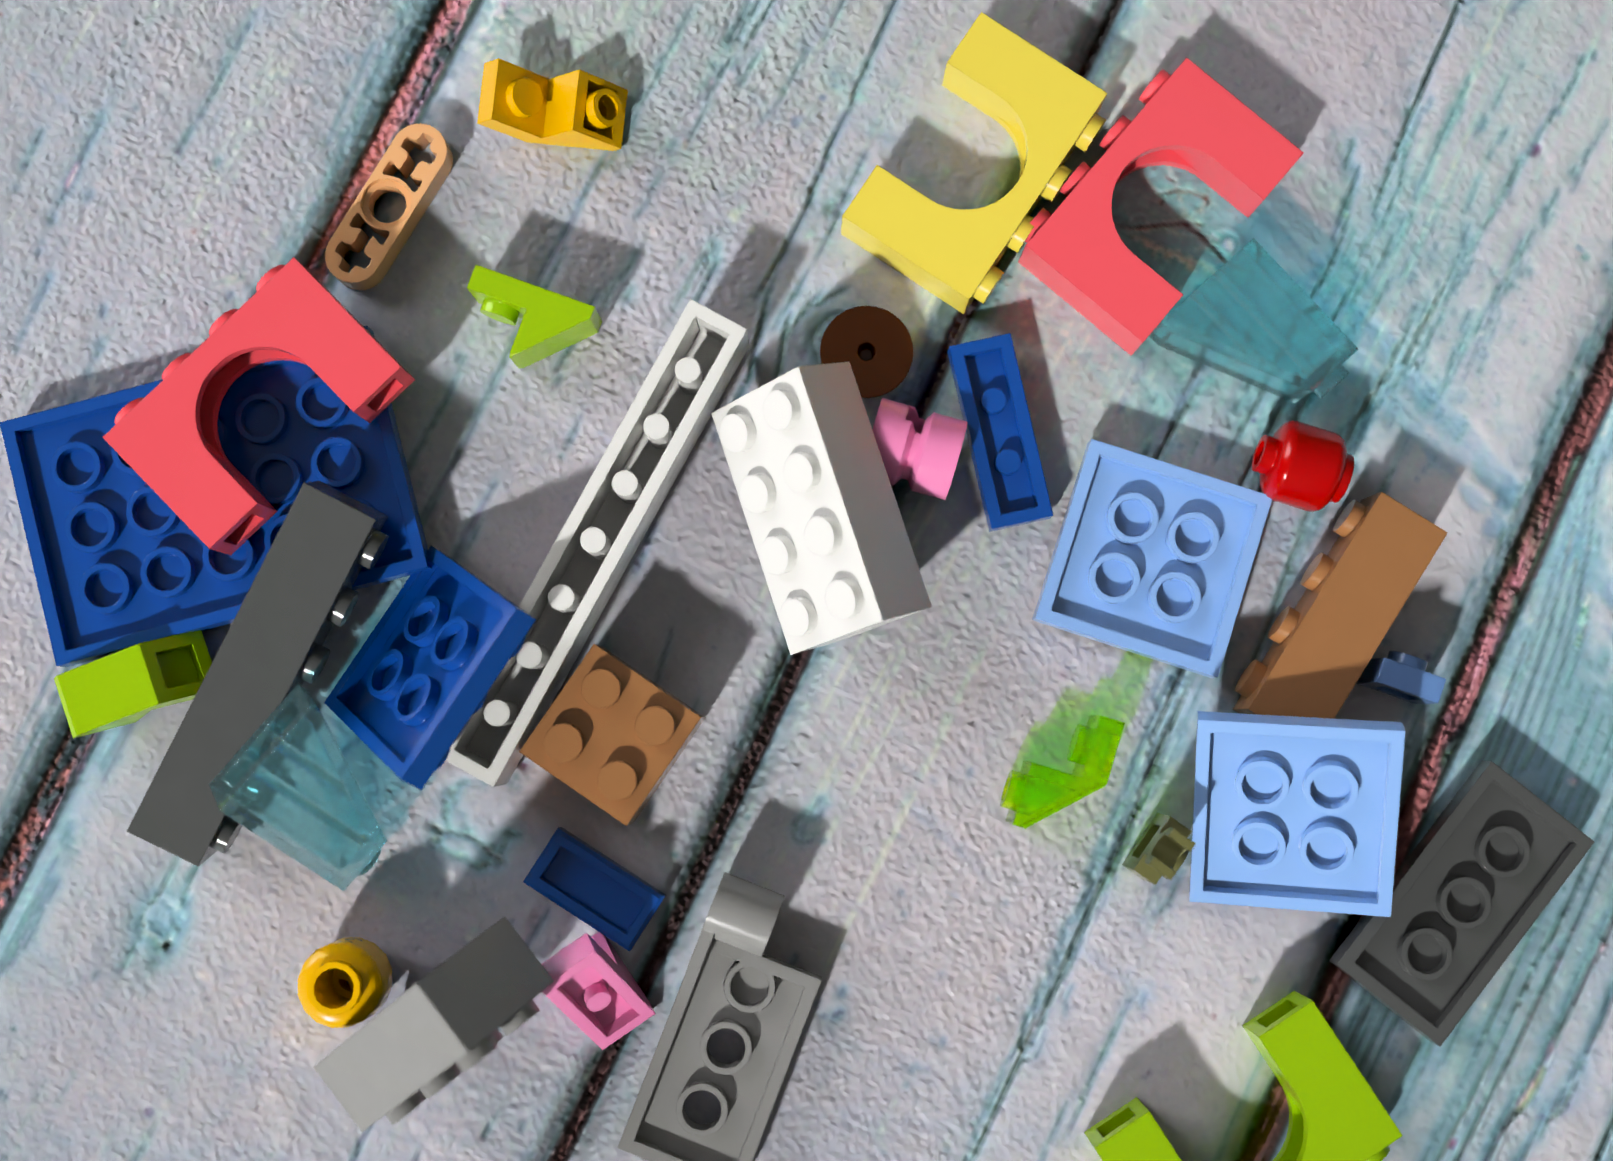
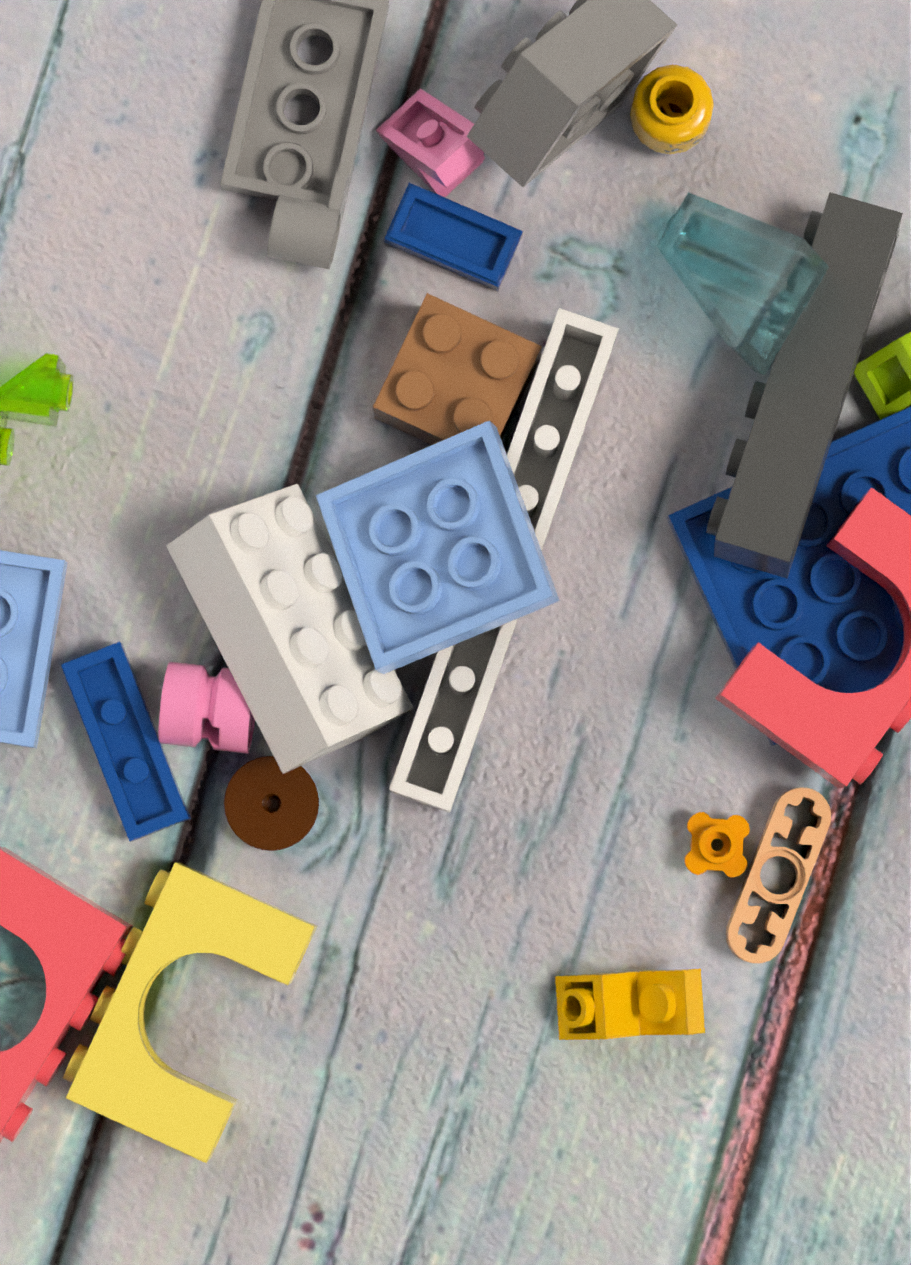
camera: 170 degrees right, 0 degrees up
(428, 667) = (644, 414): blue plate -> none
(451, 259) = (704, 831): none -> light orange plate
(548, 318) = (593, 784): lime slope -> none
(657, 557) = (436, 548): none -> light blue plate

